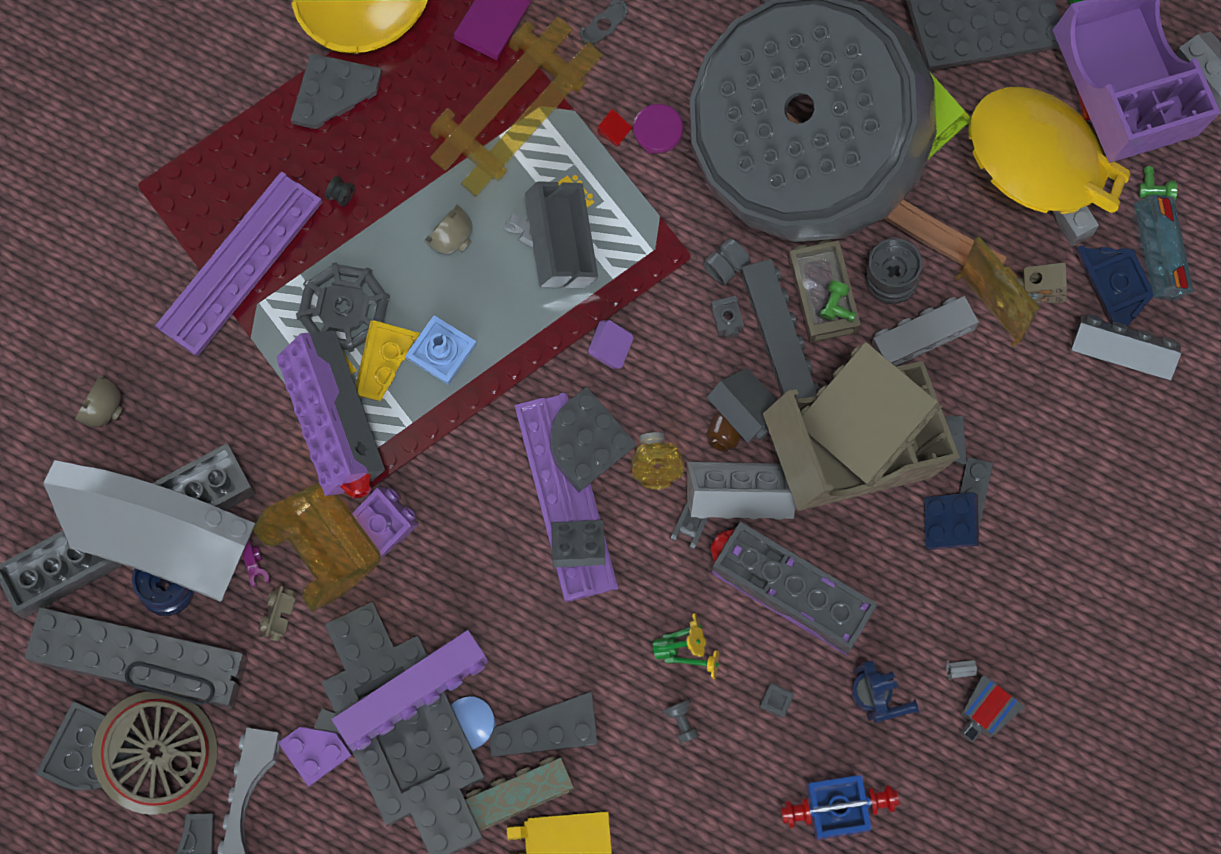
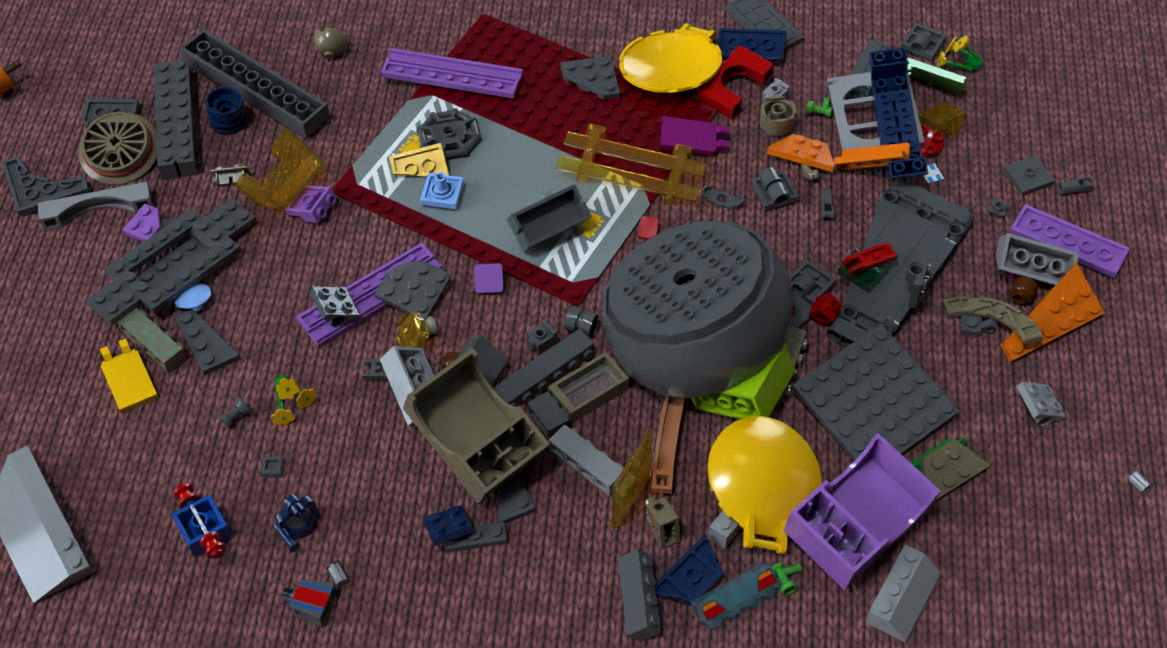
camera: 65 degrees right, 20 degrees down
(148, 527) = (252, 87): light grey slope -> none
(166, 693) = (152, 132): black piece -> none
(252, 557) = (260, 150): magenta plate -> none
(330, 414) = (366, 143): medium lavender piece -> none
(339, 191) = (524, 101): pearl dark grey wheel -> none
(409, 691) = (196, 247): medium lavender brick -> none
(451, 232) = (523, 164): dark tan cylinder -> none
(791, 587) = (353, 441): dark grey piece -> none
(832, 309) = (572, 390): bright green piece -> none
(836, 350) = (547, 414): none -> dark grey brick
(868, 414) = (484, 415): dark tan panel -> none
(891, 259) = (622, 419): dark grey wheel -> none

